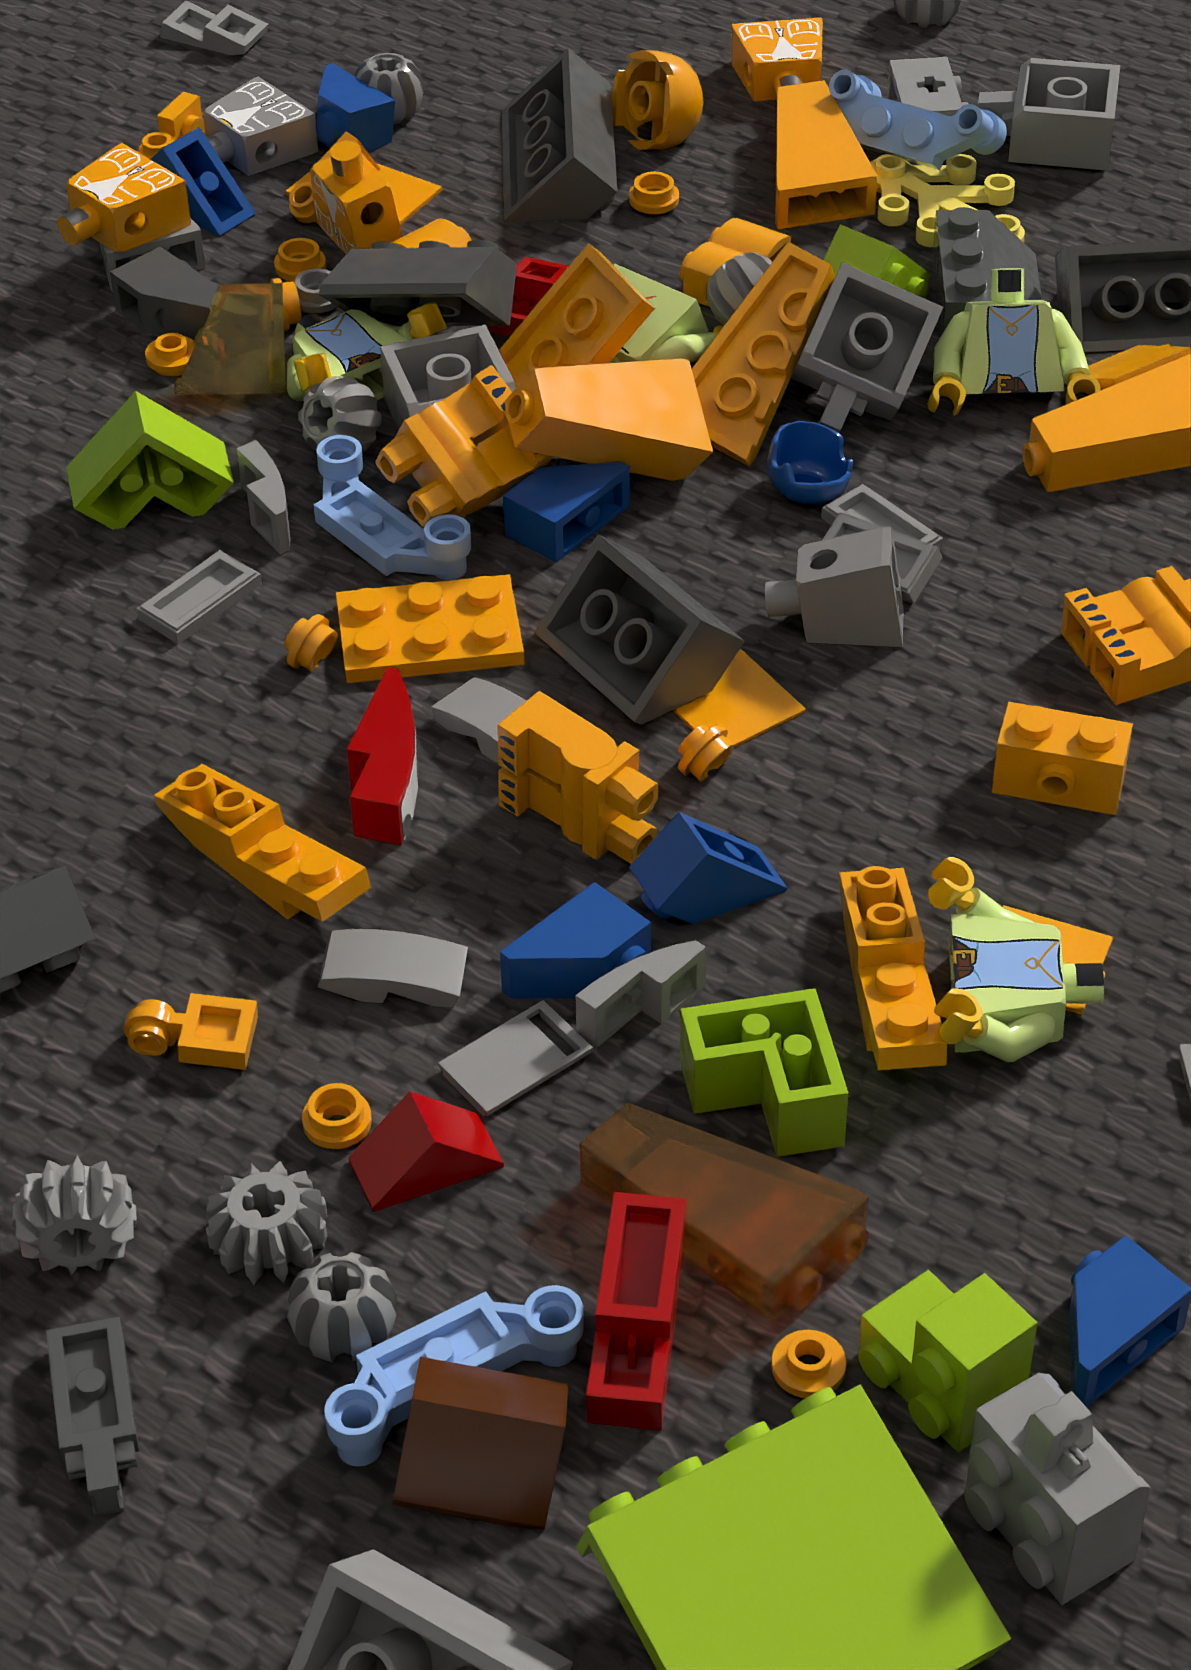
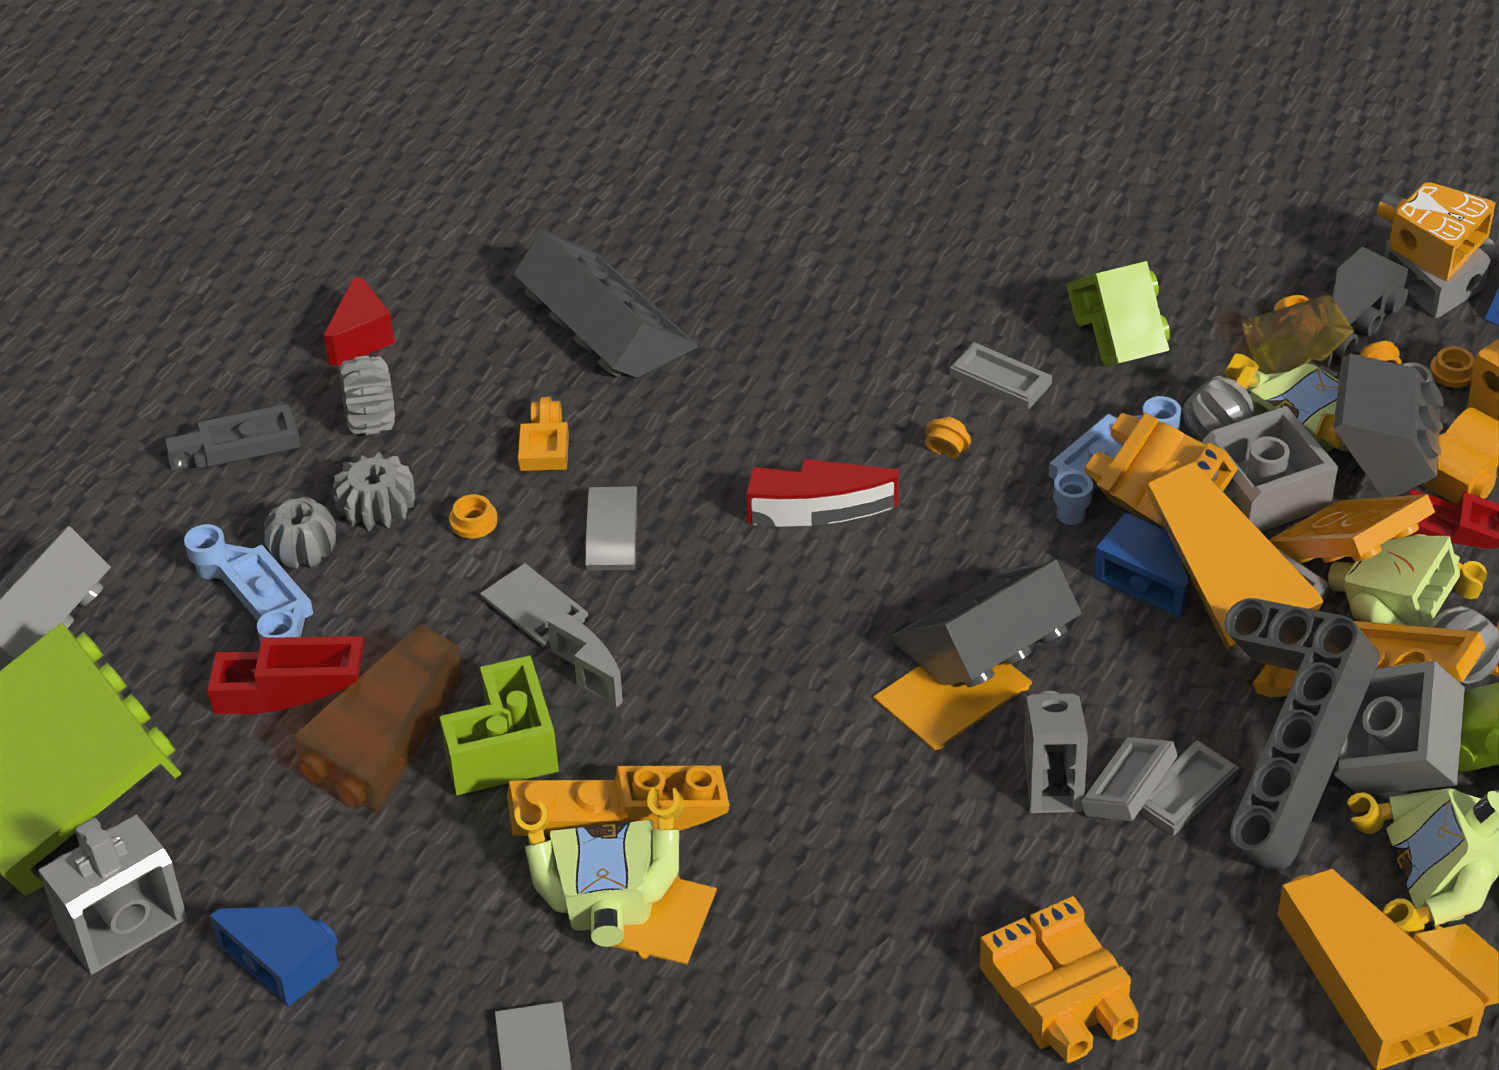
camera: 85 degrees right, 0 degrees up
(254, 845) = (724, 438): light orange slope -> none
(265, 495) = (1106, 392): light grey slope -> none
(422, 1150) = (443, 568): red slope -> none
(429, 628) = (988, 508): light orange plate -> none
(476, 711) = (875, 554): light grey slope -> none
(482, 1444) = (195, 607): reddish brown slope -> none
(574, 946) = (633, 621): blue slope -> none
(575, 778) = (787, 589): light orange hips -> none
(702, 872) = (717, 689): blue slope -> none
(704, 751) = (857, 678): light orange plate -> none
(803, 1378) = (256, 790): light orange plate -> none
(808, 454) = (1238, 704): blue hair -> none
(855, 391) = (1332, 678): none -> dark grey beam
(947, 1351) = (236, 844): lime brick -> none
(1050, 743) = (870, 908): light orange brick -> none

